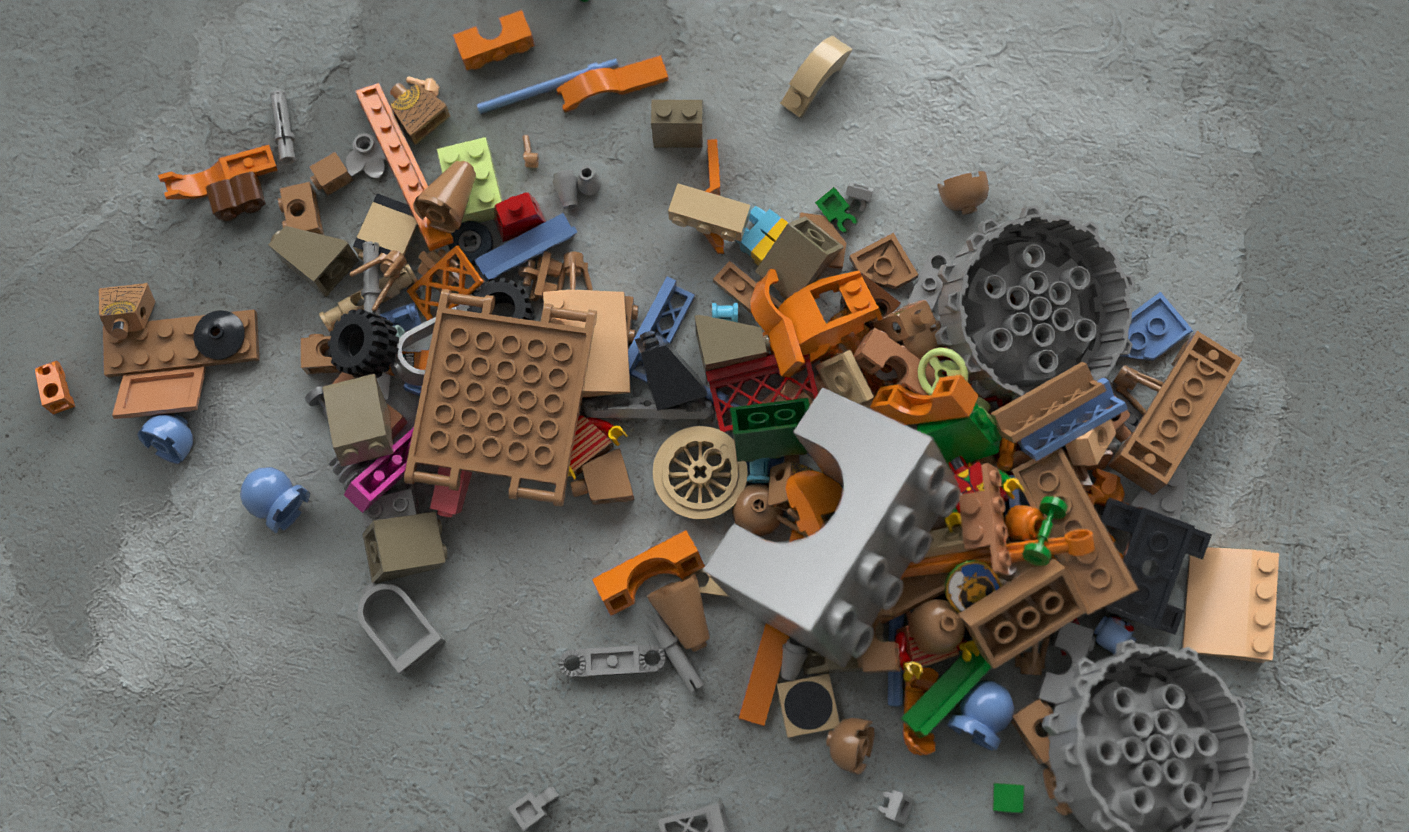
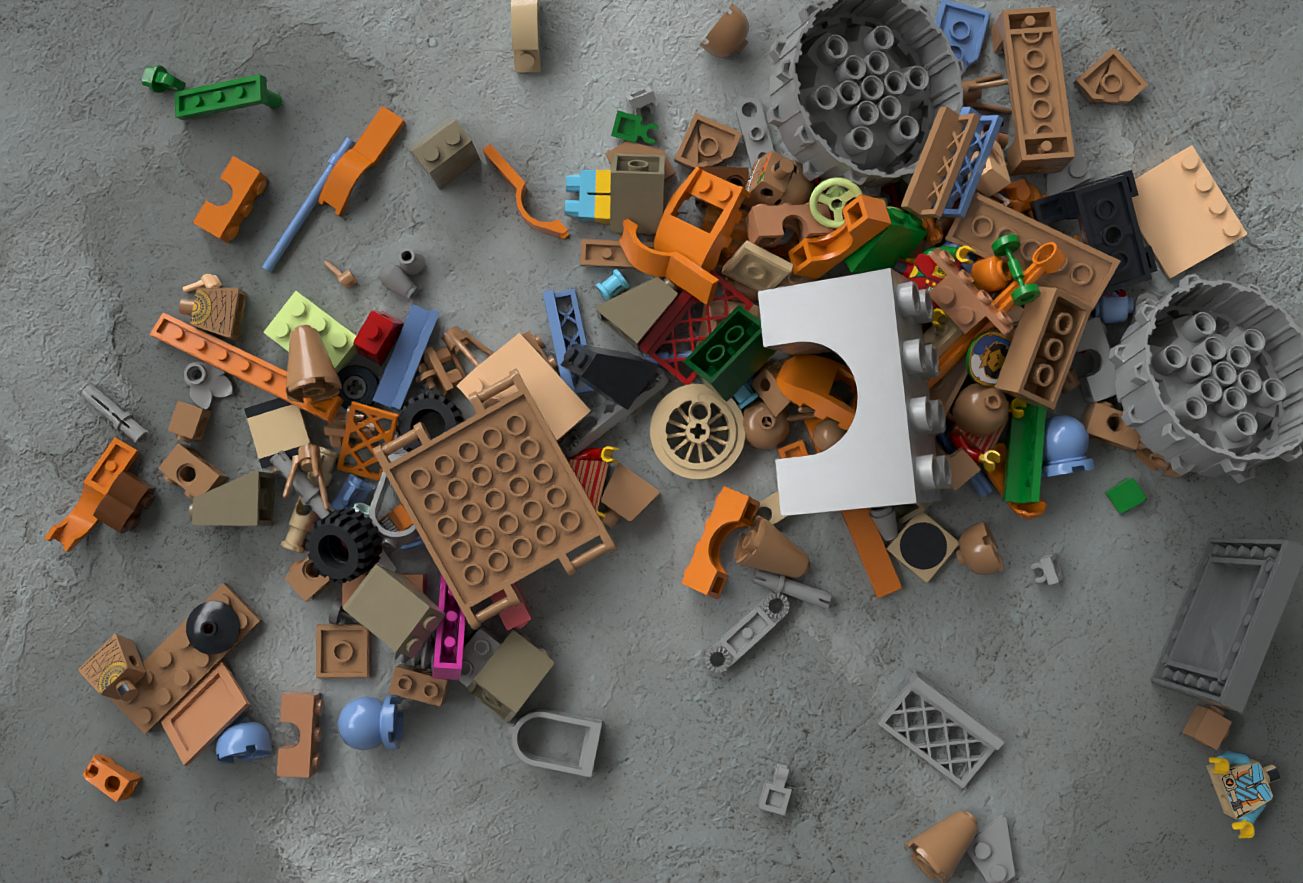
camera: 45 degrees left, 10 degrees up
(230, 452) = (303, 711): none -> nougat arch
(297, 429) = (343, 651): none -> medium nougat tile
(331, 498) = (419, 685): none -> medium nougat brick
(709, 213) = (536, 212): tan brick -> none
(1252, 455) = (1110, 80): none -> medium nougat plate

